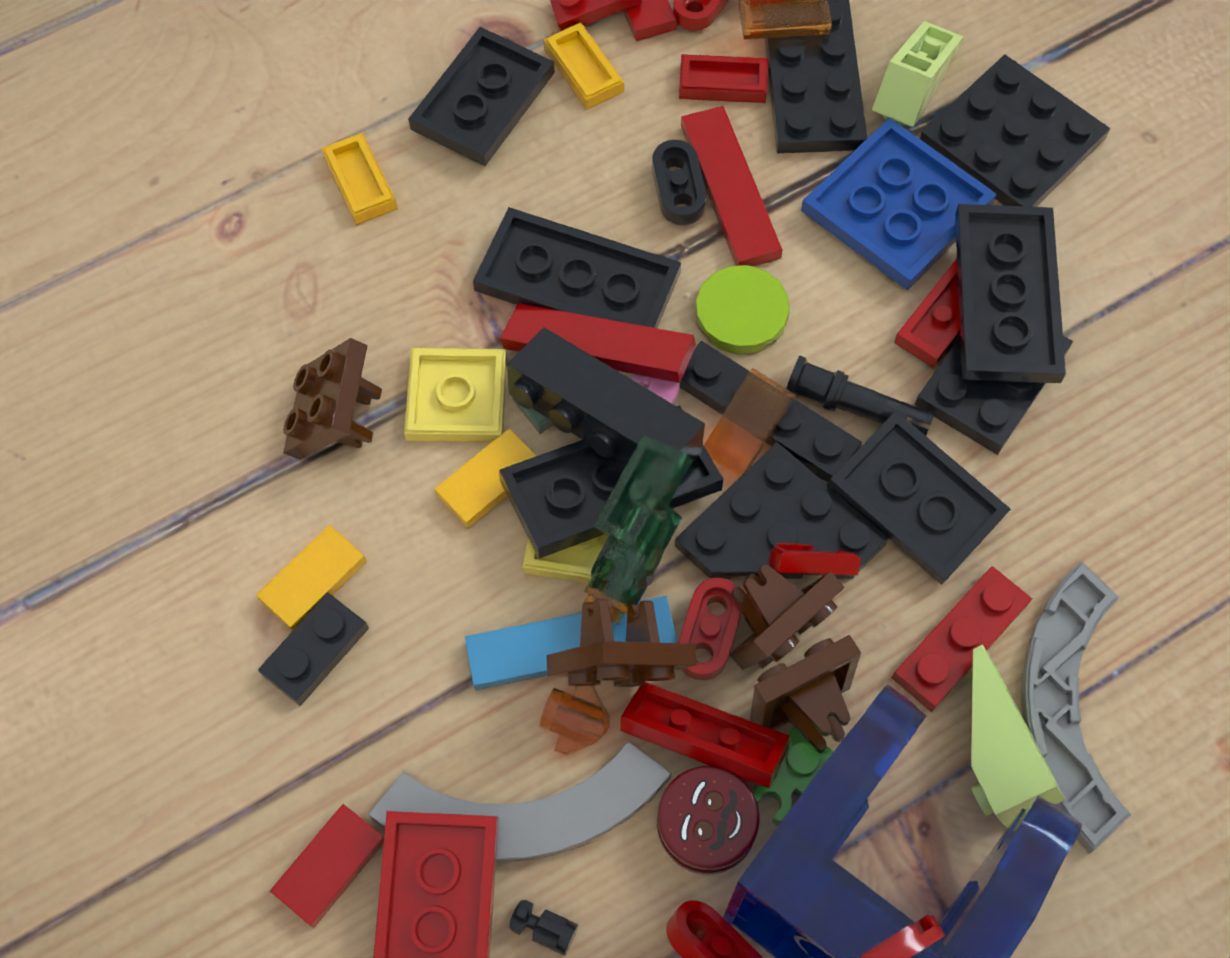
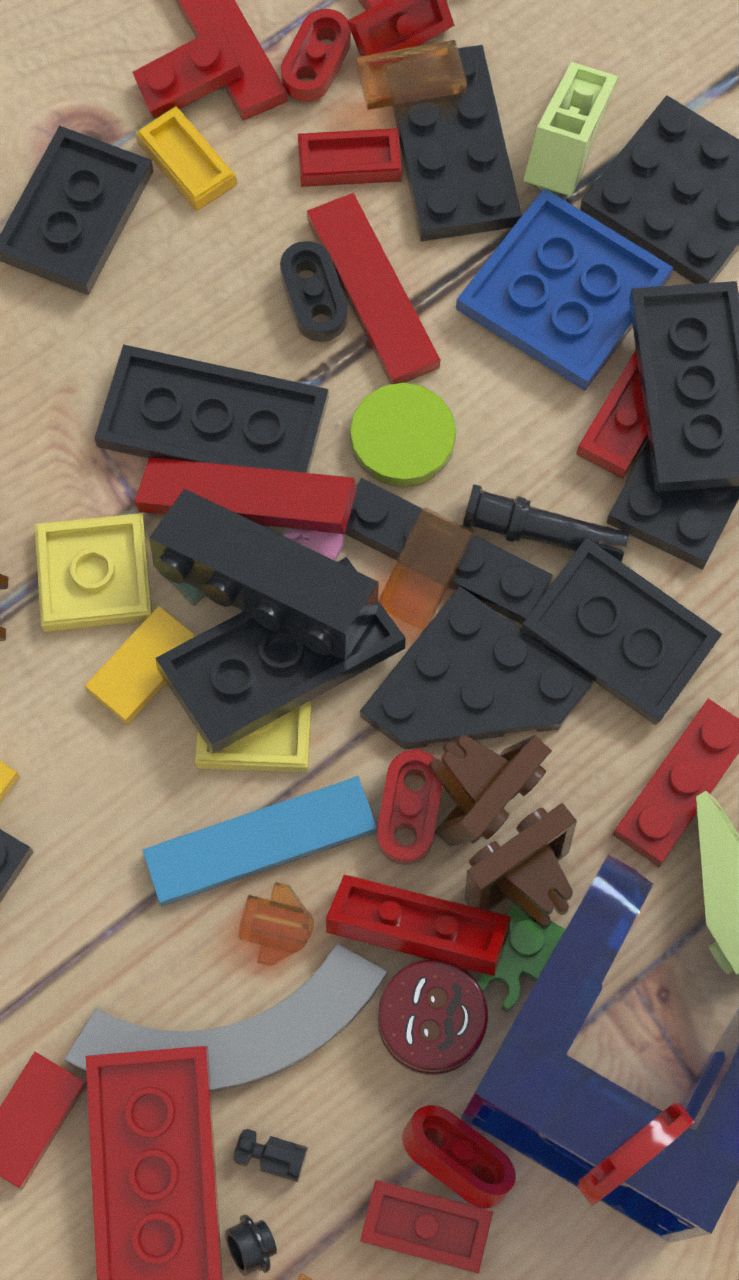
camera: 10 degrees left, 5 degrees up
(628, 662) = (334, 860): reddish brown plate -> none
(637, 526) = (318, 711): clear green plate -> none
(802, 559) = (498, 720): red tile -> none

